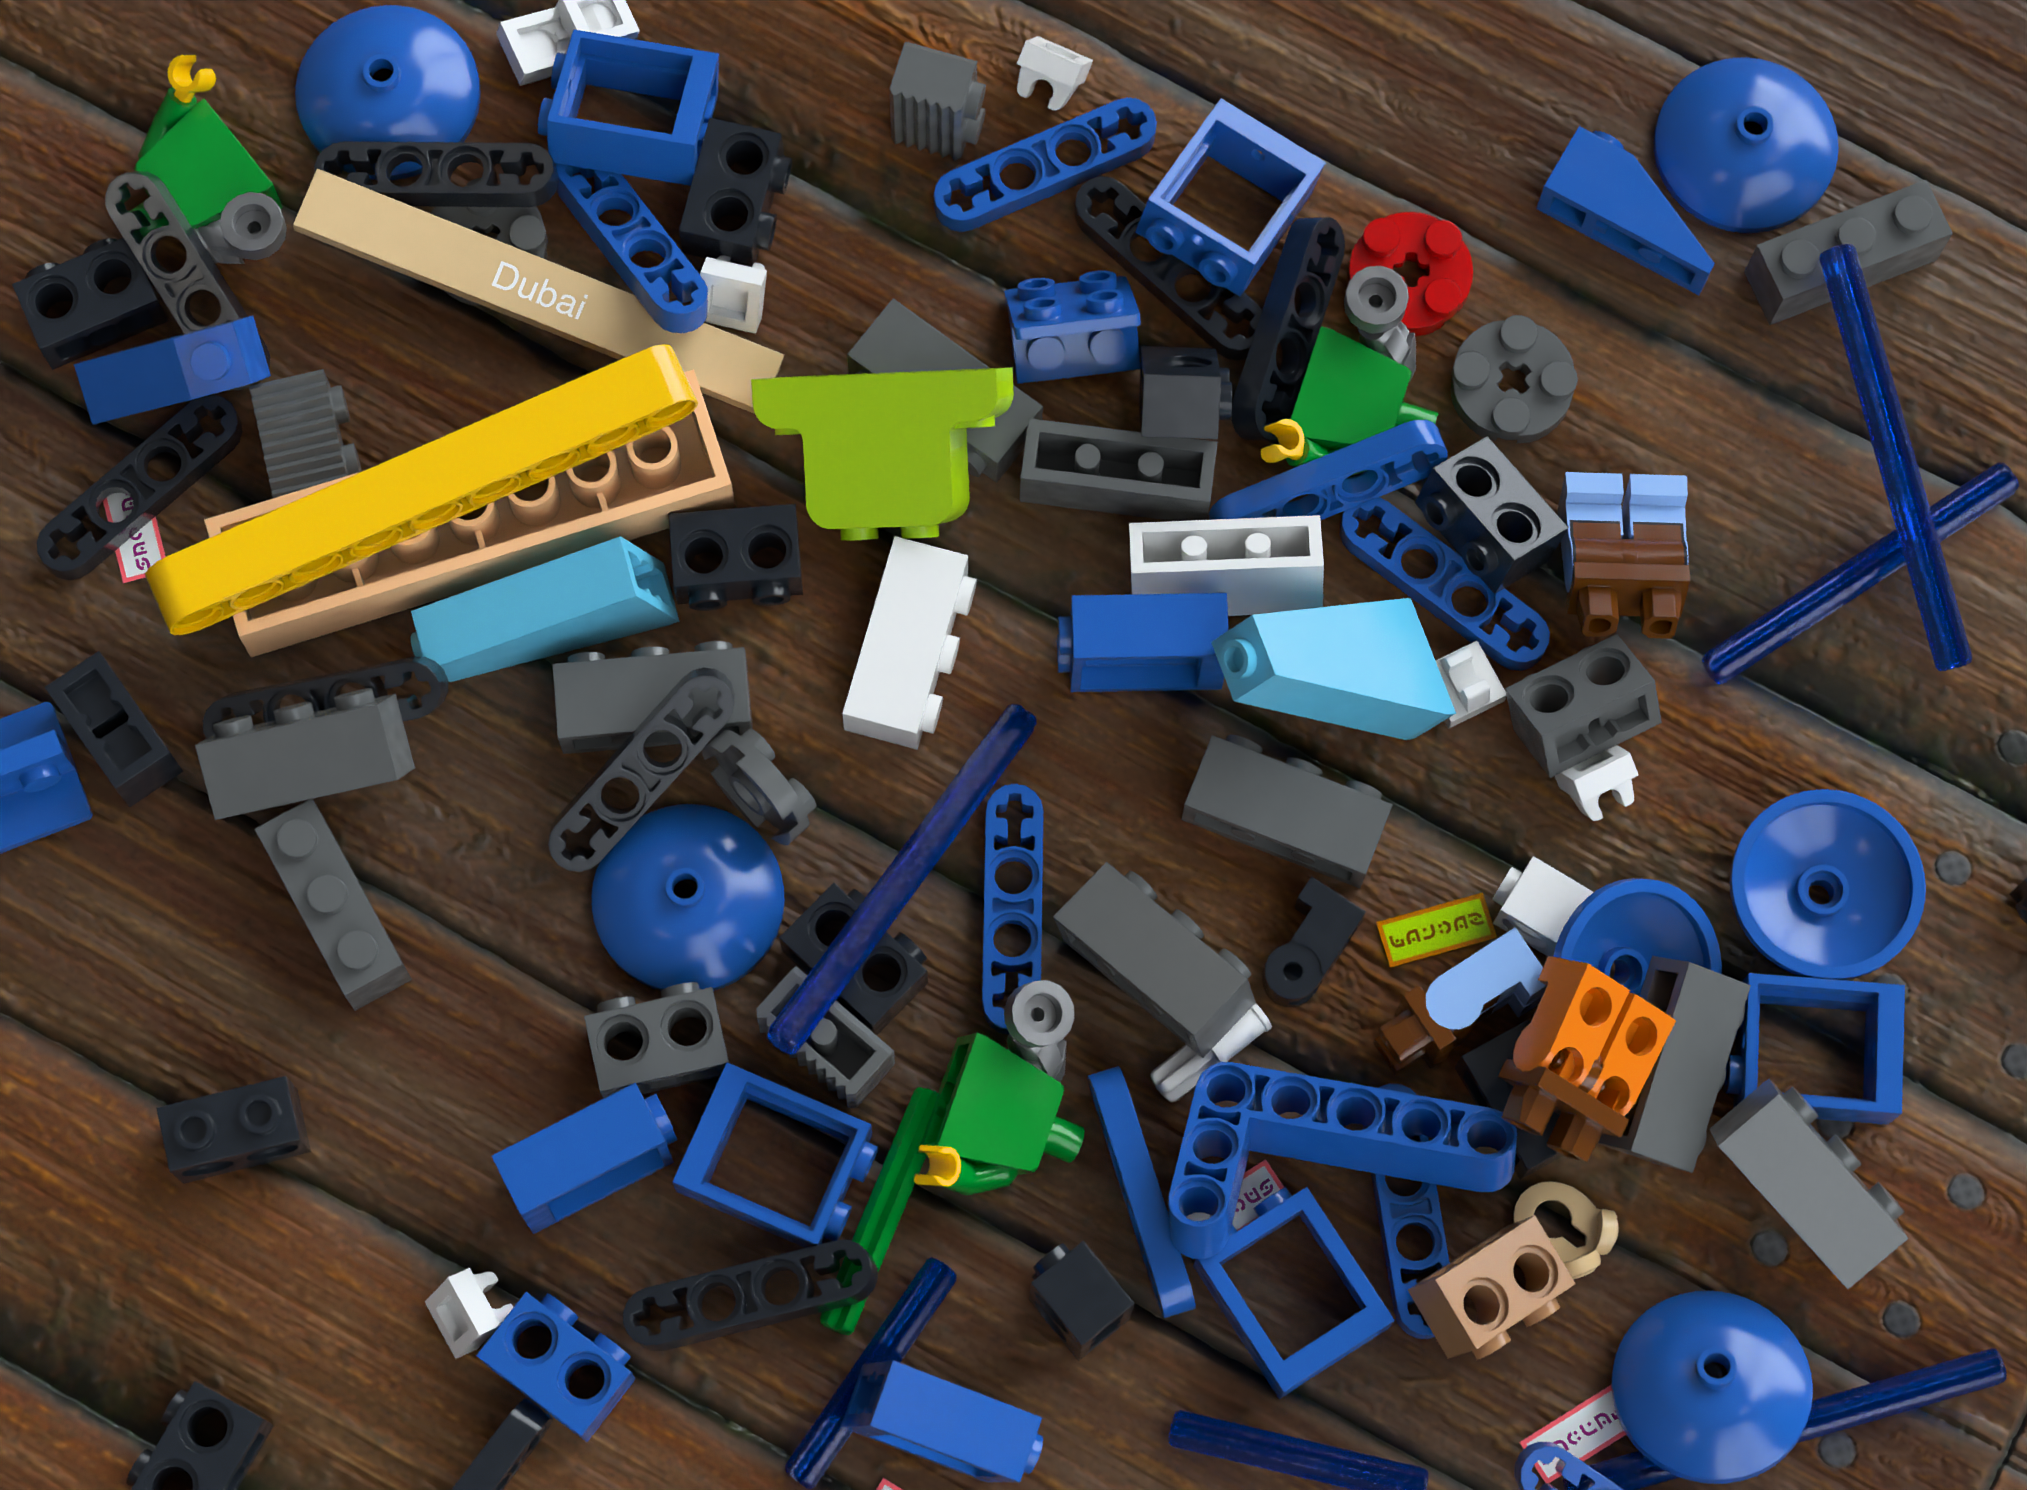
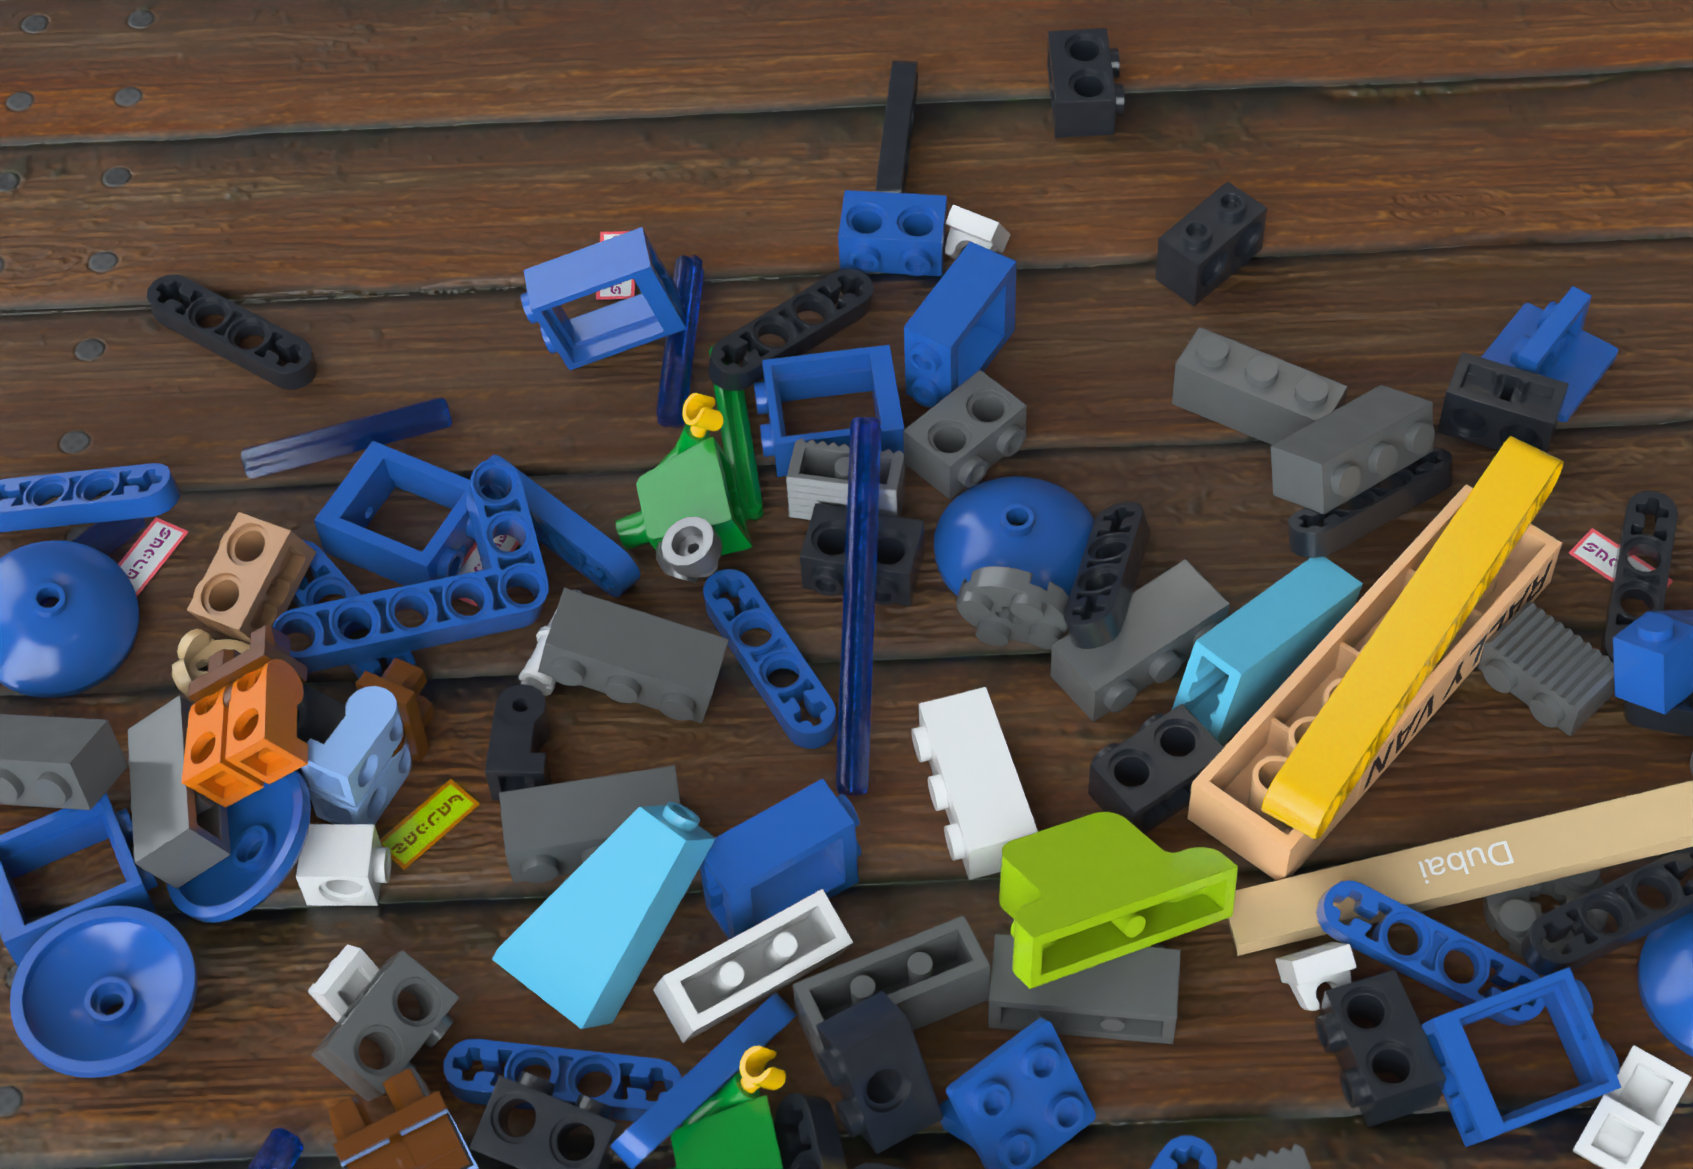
camera: 155 degrees right, 20 degrees down
(1078, 1298) = (553, 419): black brick -> none
(1470, 682) = (502, 1008): white tile -> none

